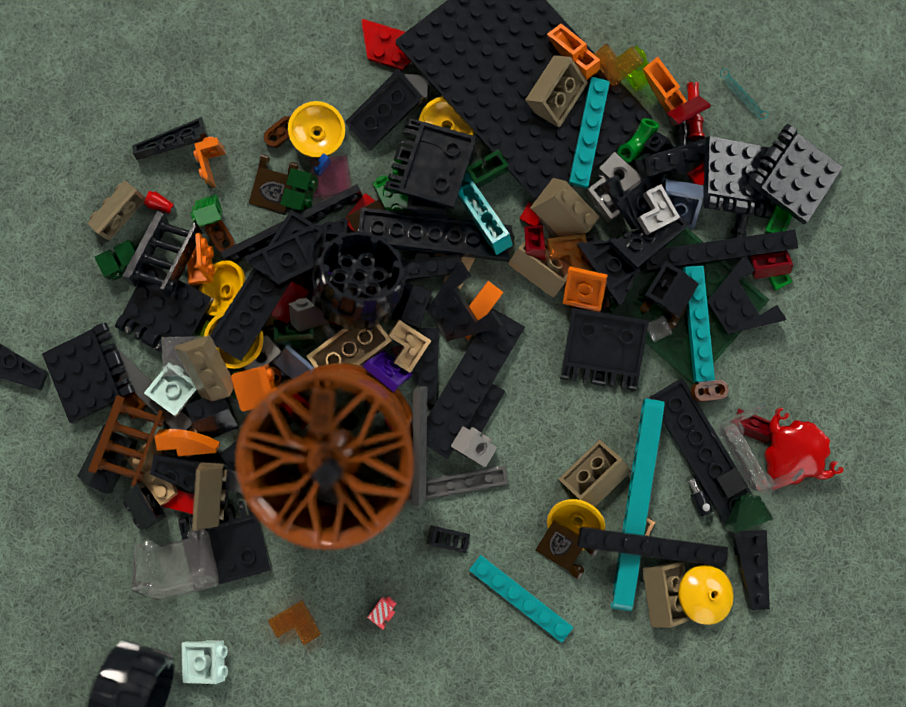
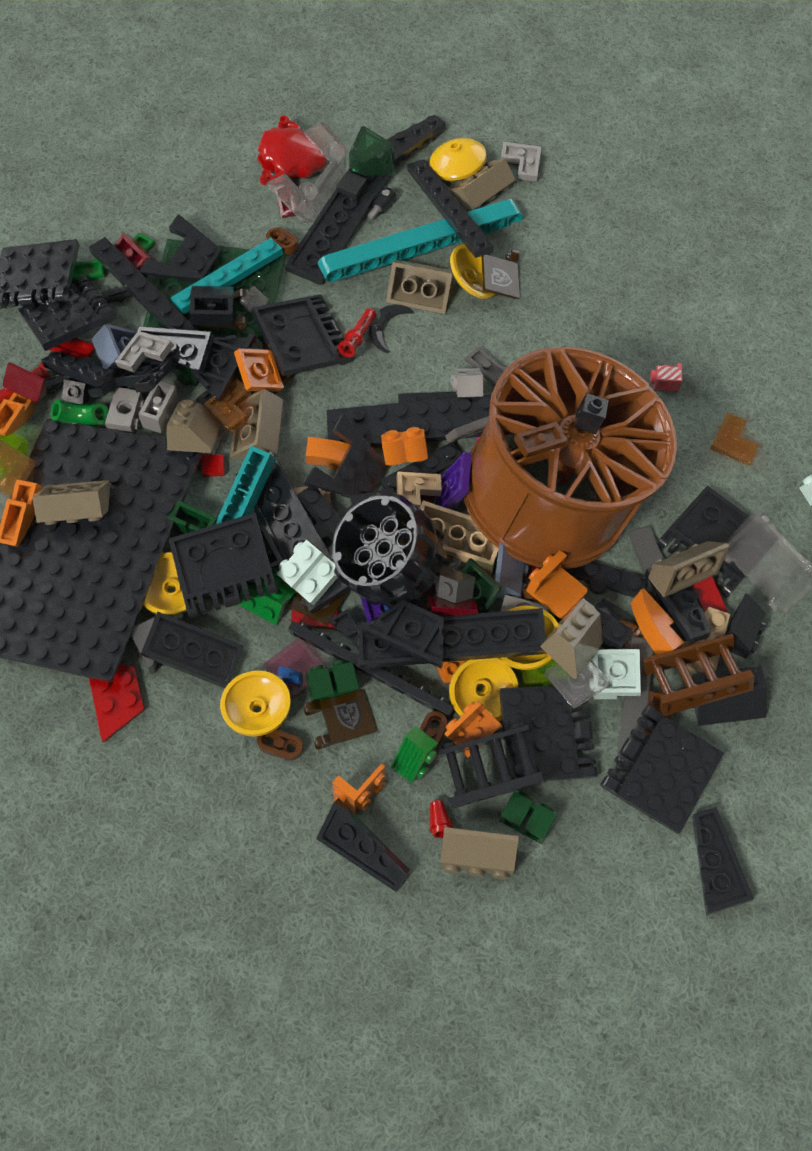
camera: 125 degrees left, 20 degrees down
(388, 220) = (308, 572): none -> light aqua plate
(449, 363) = (404, 446): none -> orange brick
(521, 598) = (568, 286): teal plate -> none
(535, 241) = (239, 440): dark red slope -> none
(575, 387) = (367, 318): none -> red pin
(587, 432) = (386, 313): none -> black piece
(589, 132) = (98, 453): teal plate -> none
(672, 657) = (524, 155): none -> light grey plate

